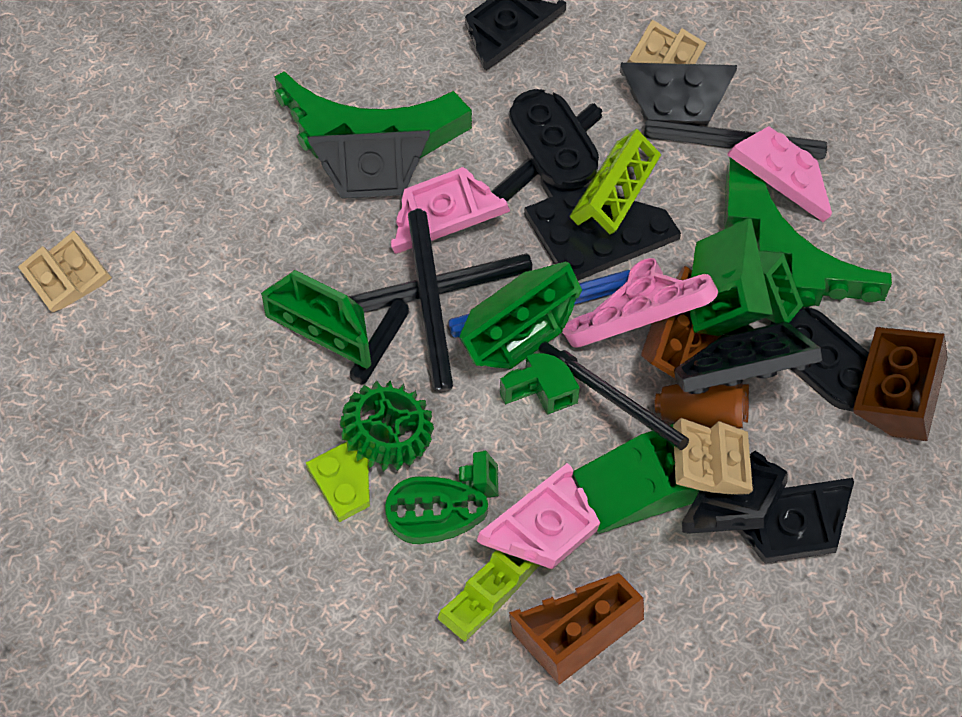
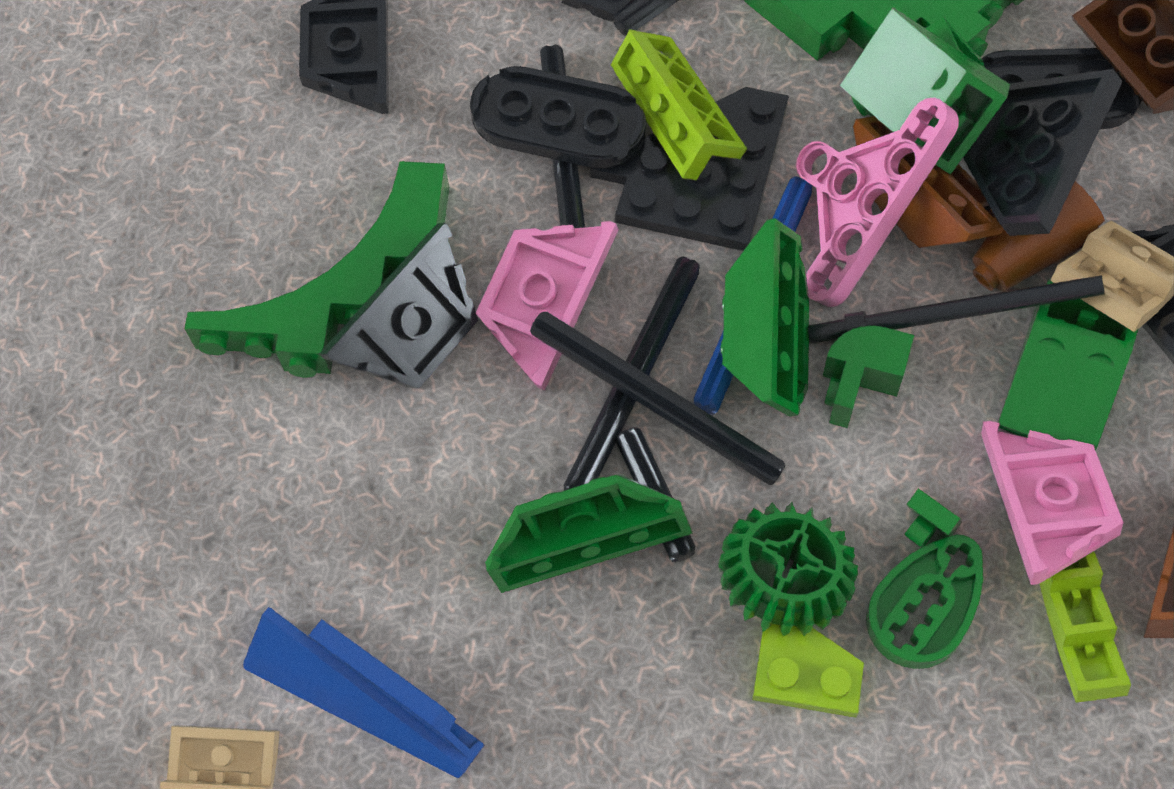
camera: 45 degrees left, 5 degrees up
(159, 289) = (359, 689): none -> blue wedge

